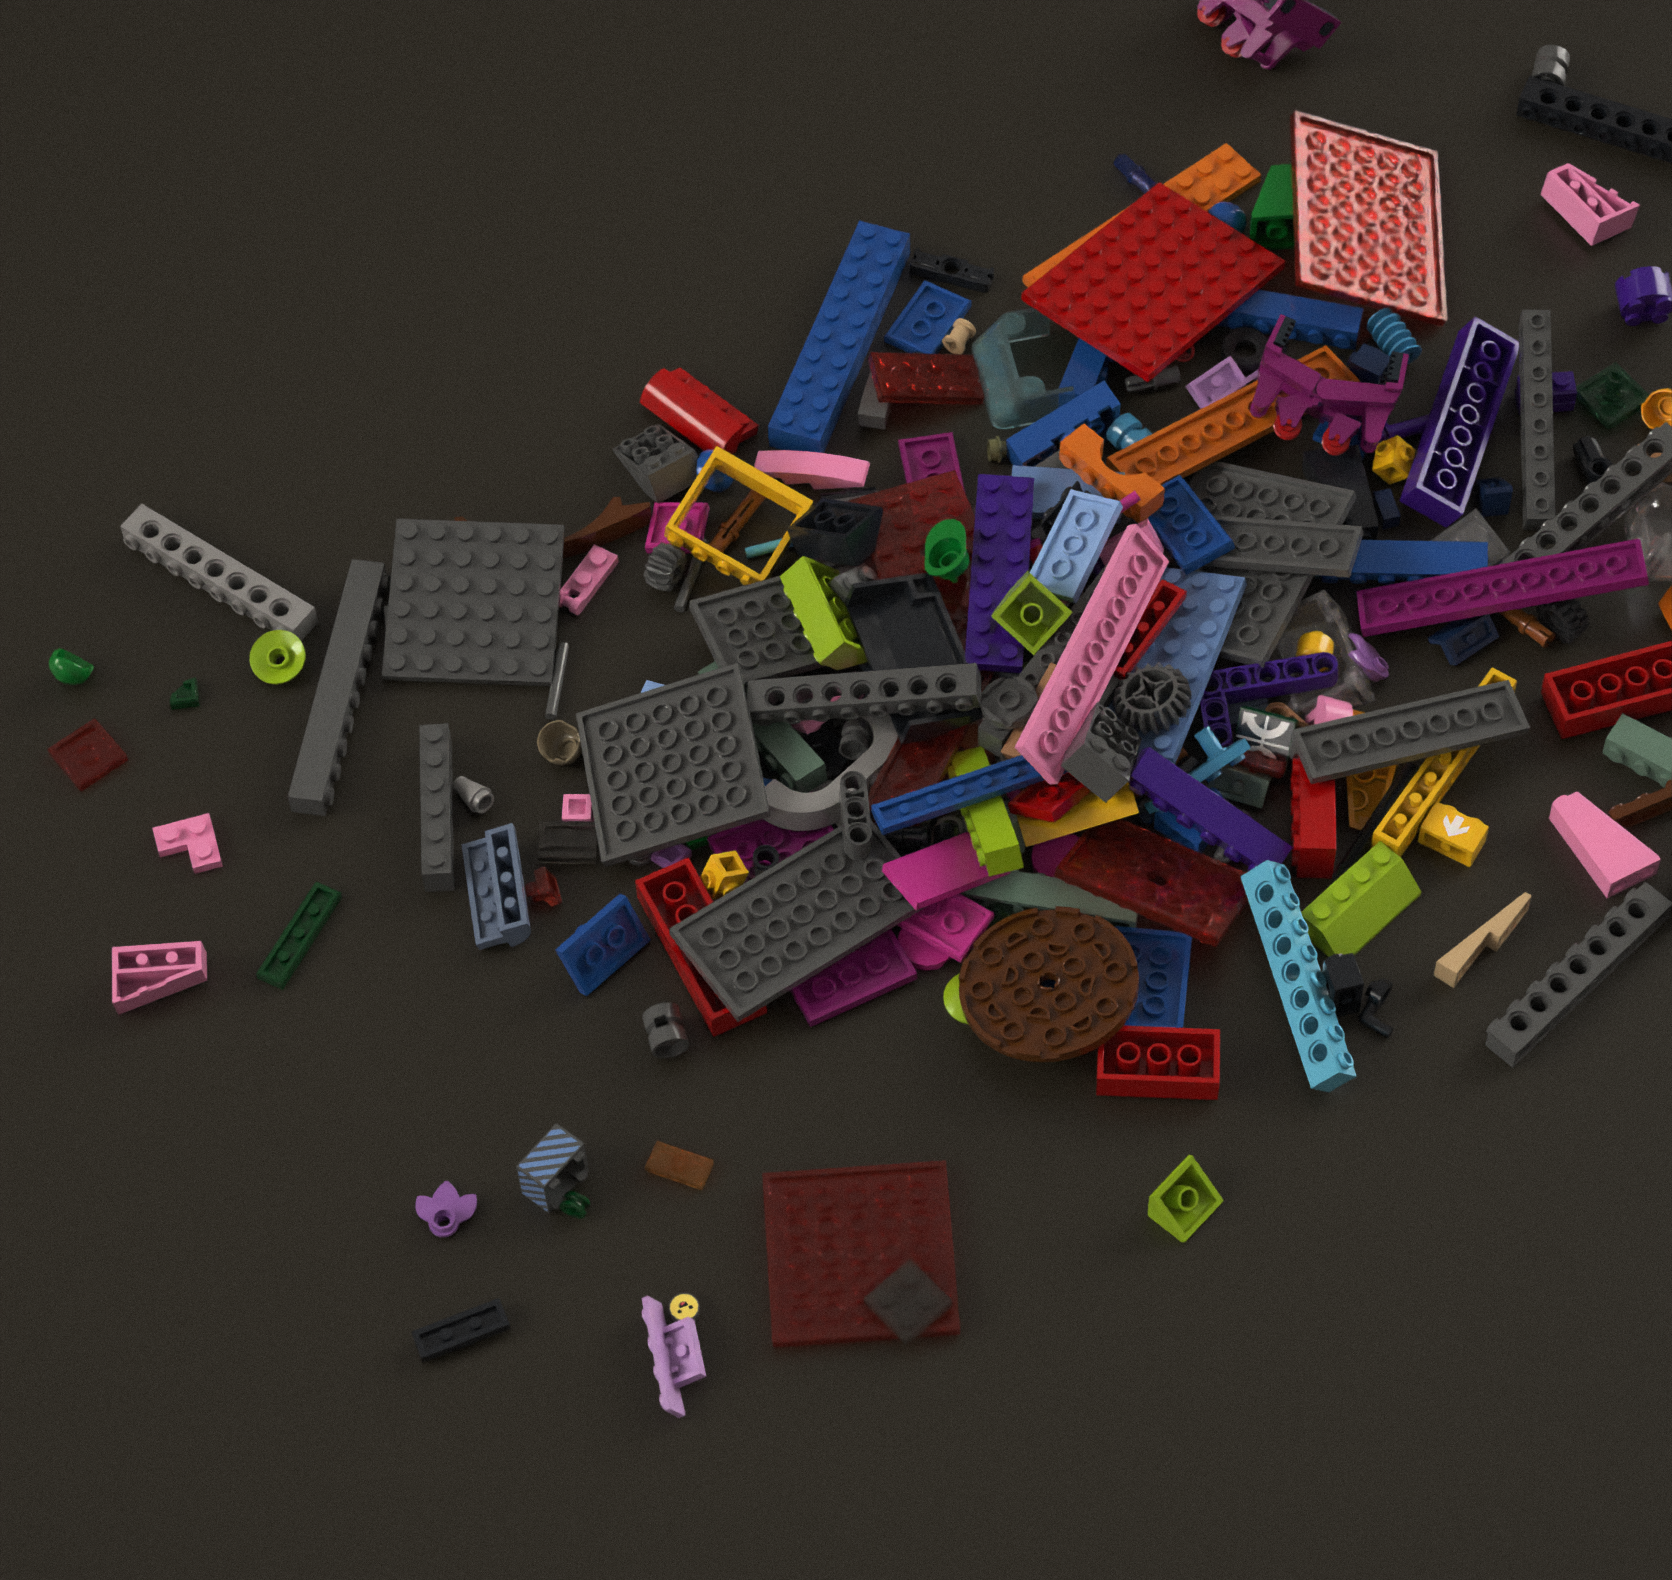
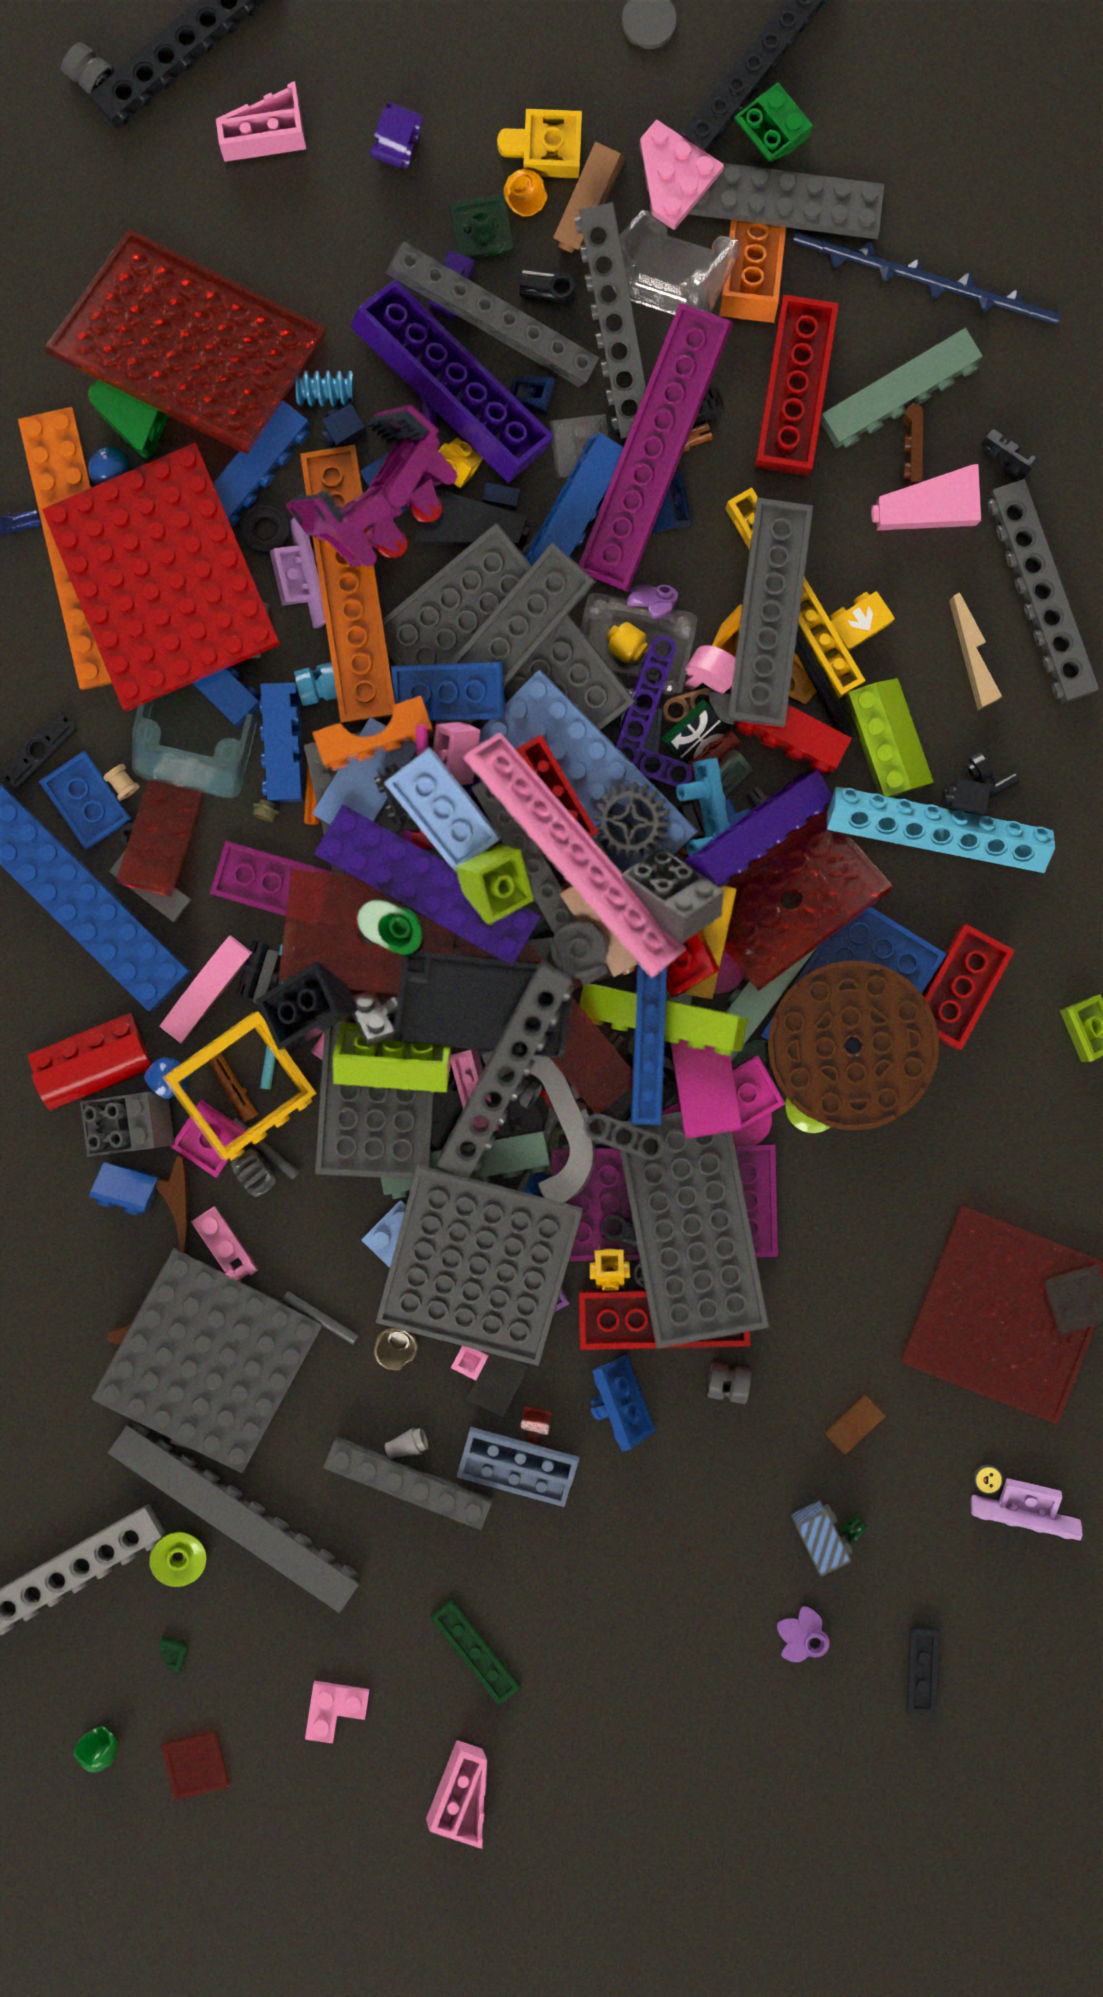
camera: 70 degrees left, 30 degrees up
(597, 476) = (125, 1187): none -> blue slope

